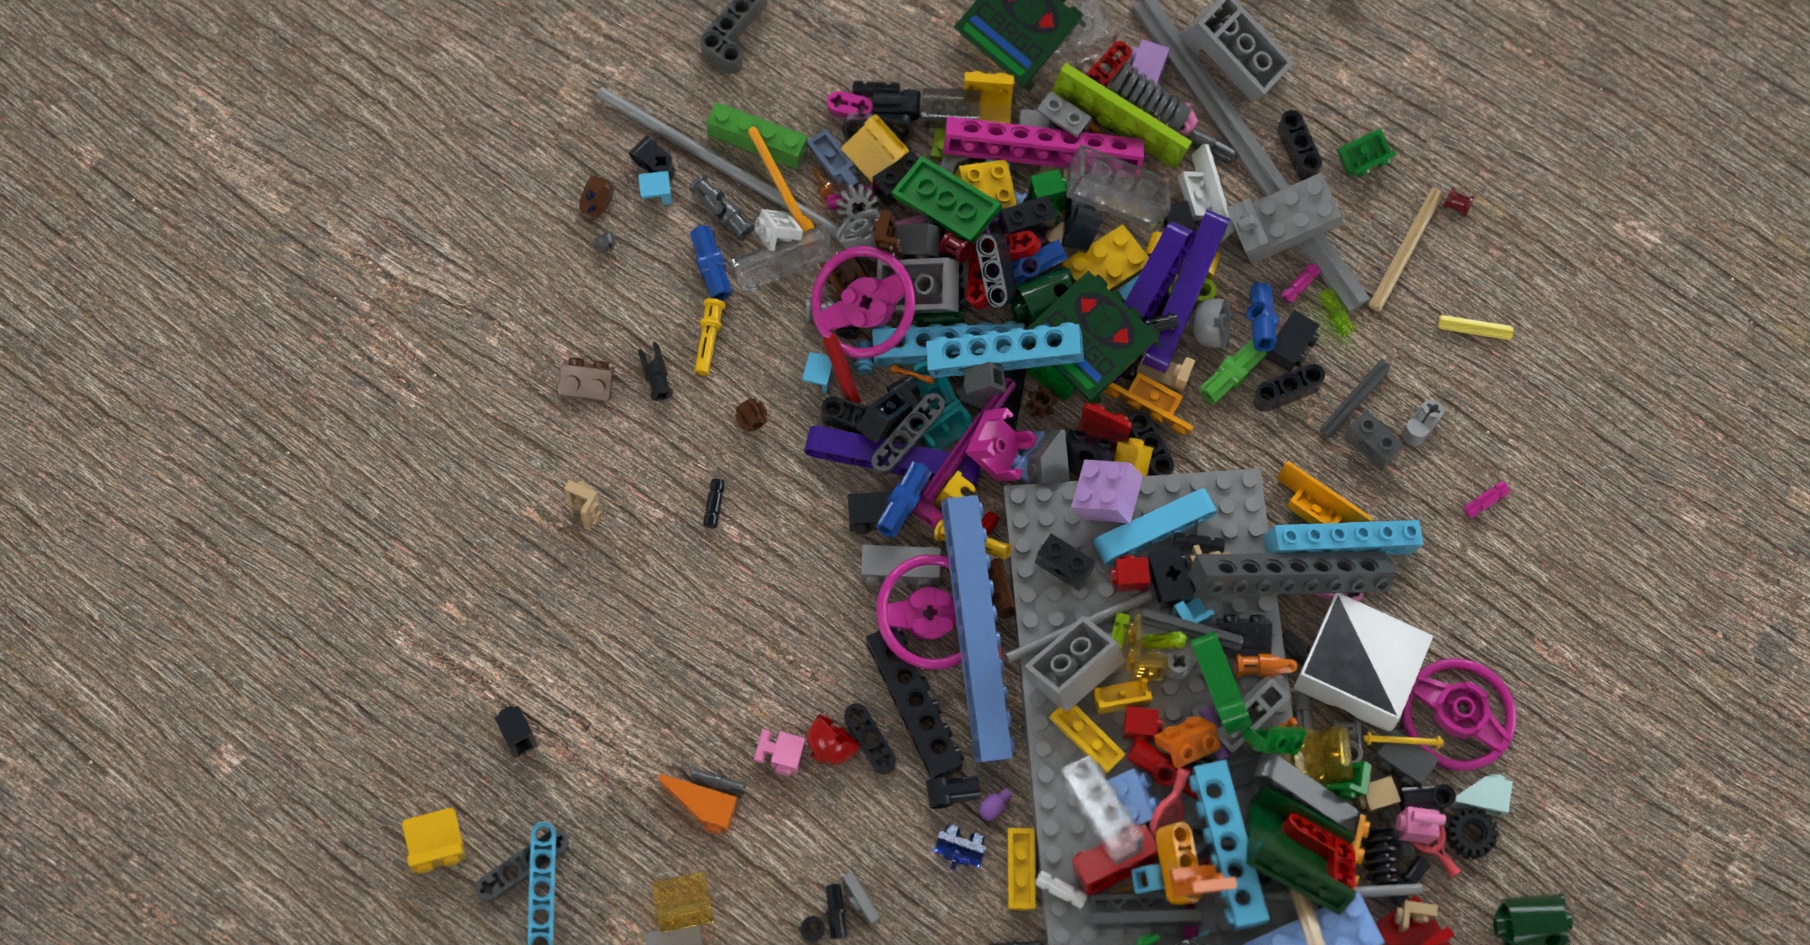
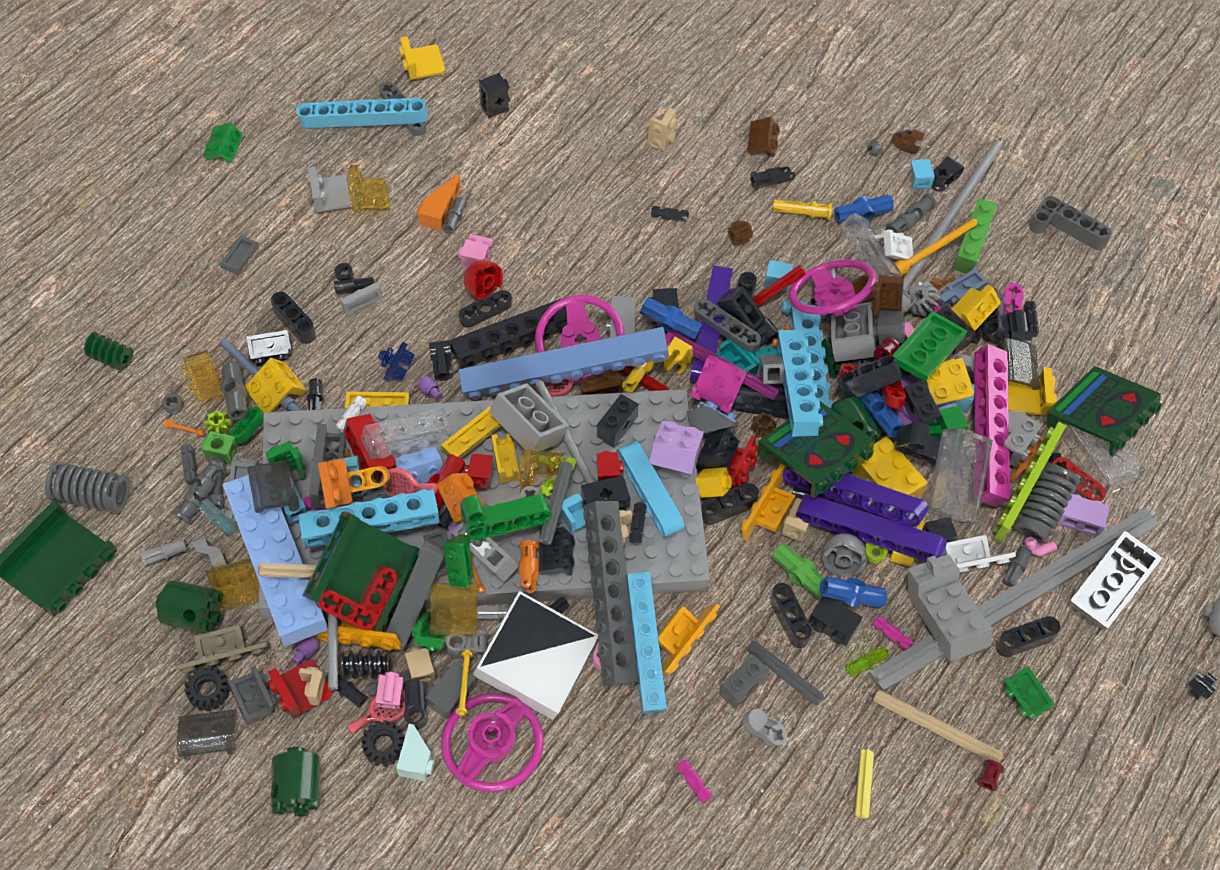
camera: 90 degrees right, 10 degrees down
(1164, 323) = (835, 507): black pin -> none

